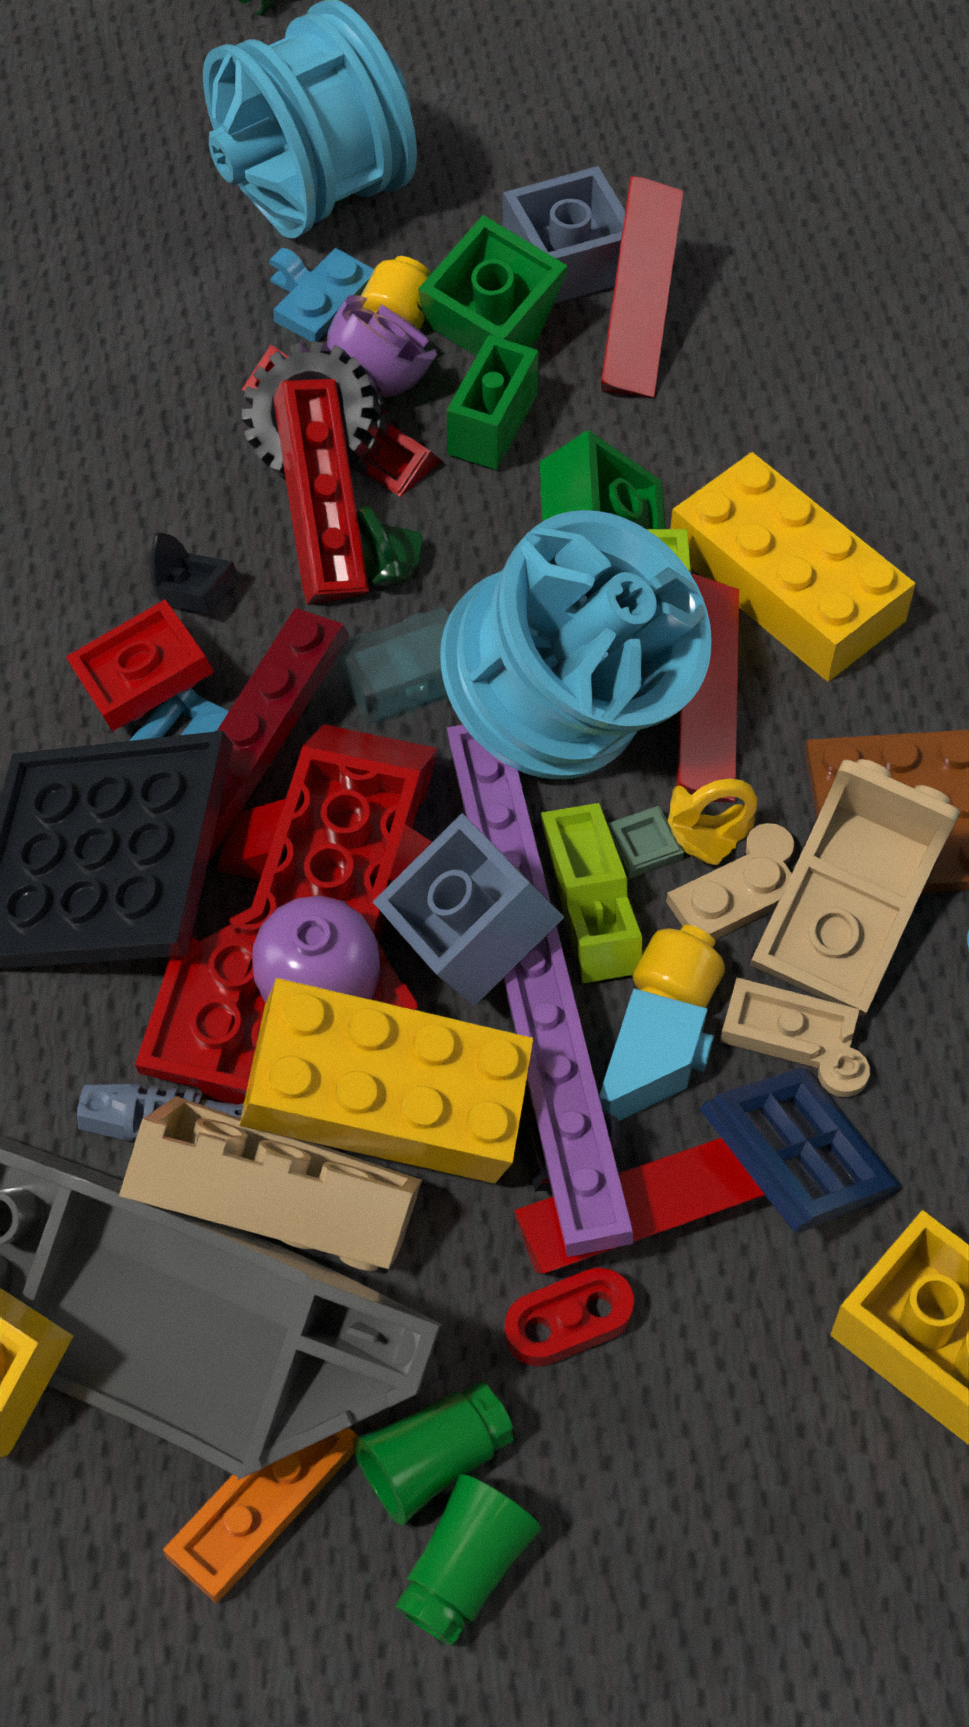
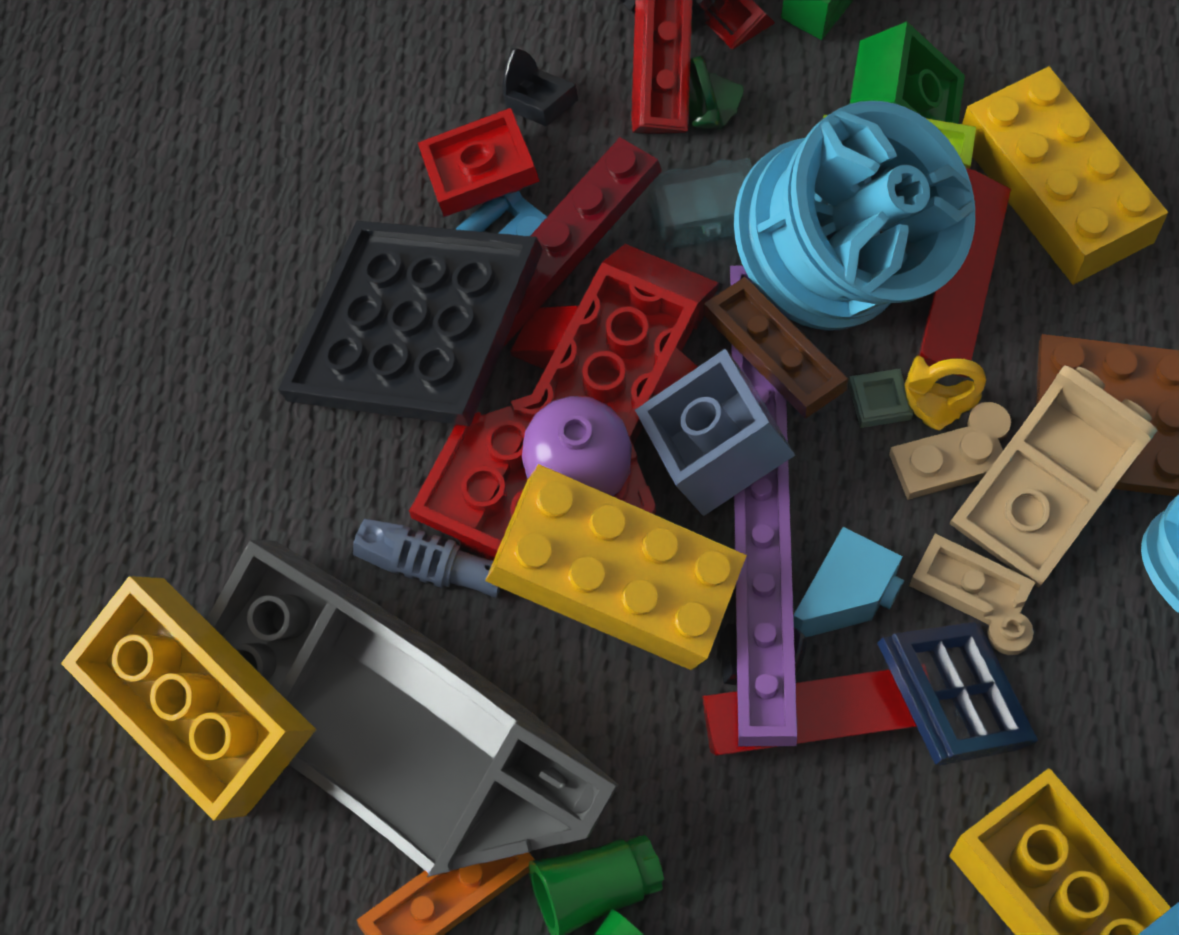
camera: 10 degrees right, 5 degrees up
(269, 1184) = (501, 635): tan wedge -> none
(516, 805) = (775, 347): none -> reddish brown plate
(565, 1314) = (728, 792): red plate -> none
(592, 892) = (828, 453): lime slope -> none
(680, 965) = (888, 514): yellow head -> none

